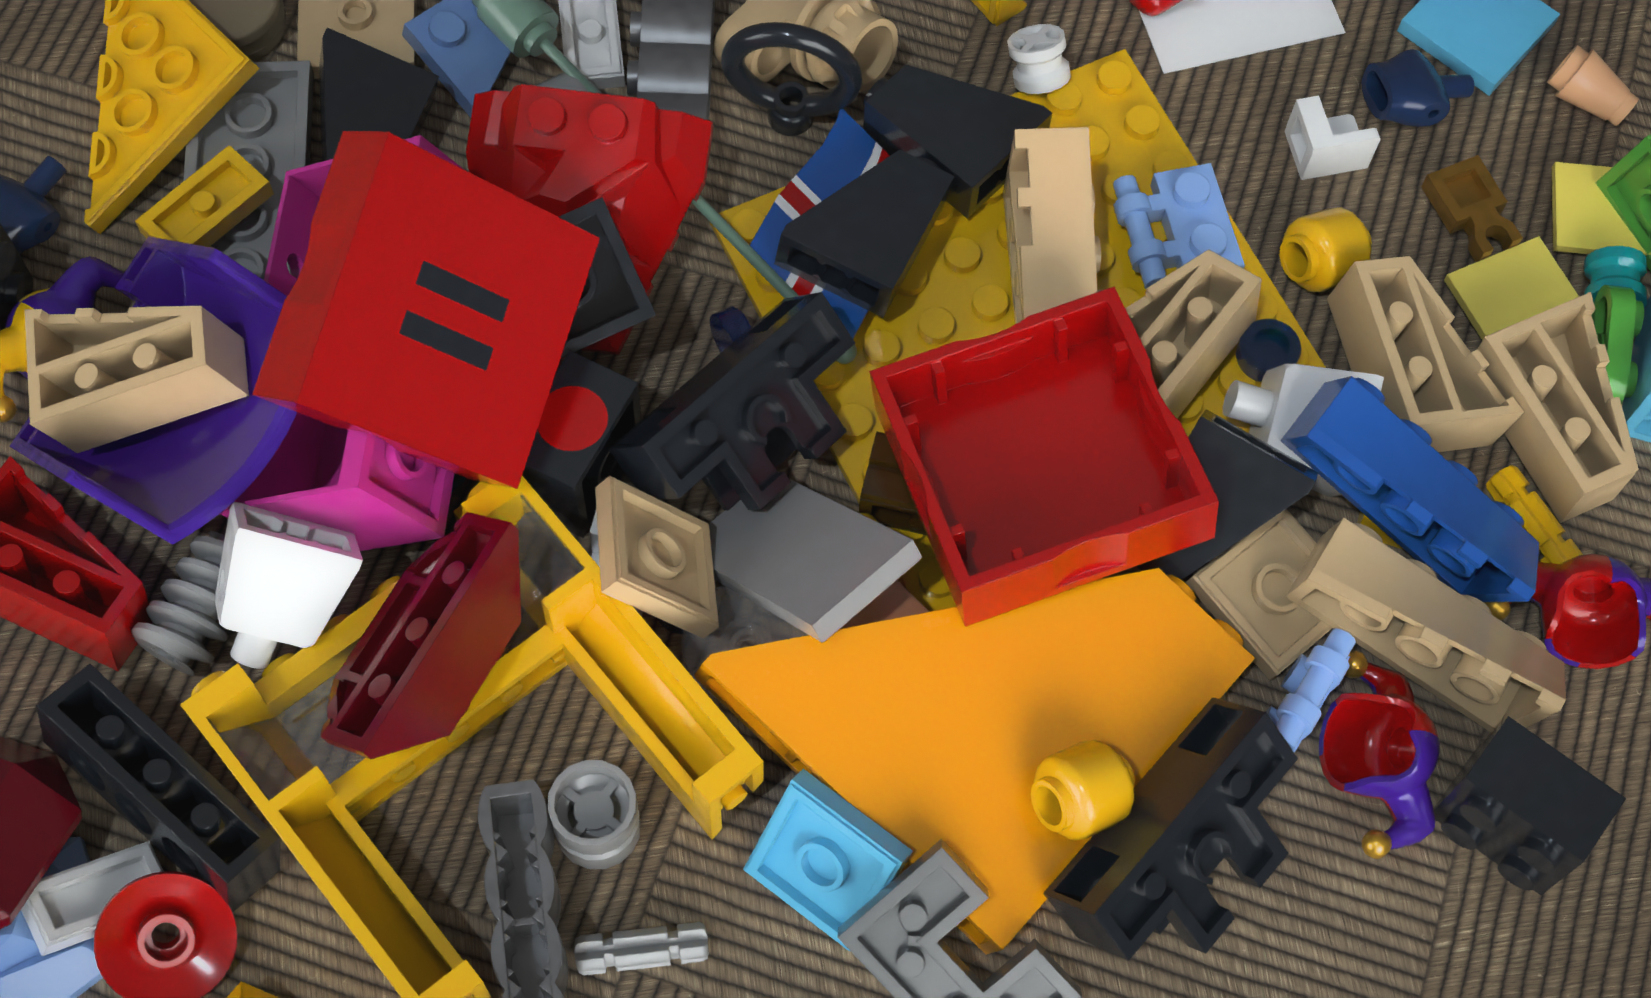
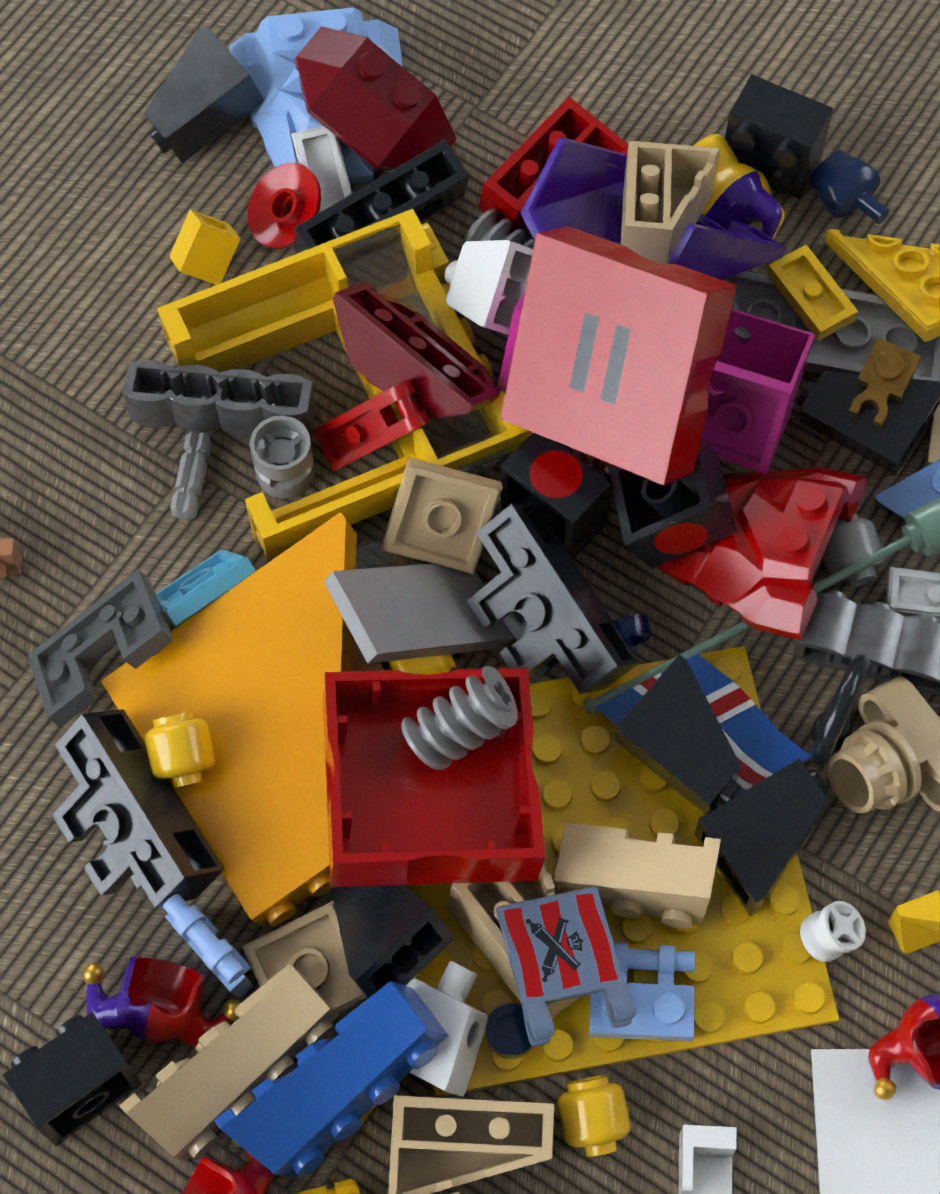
camera: 110 degrees right, 0 degrees up
(329, 89) = (885, 377): none -> pearl gold plate
(534, 688) = (370, 426): none -> red plate
(971, 421) = (463, 724): none -> light grey piece
(1194, 277) = (560, 953): none -> flag

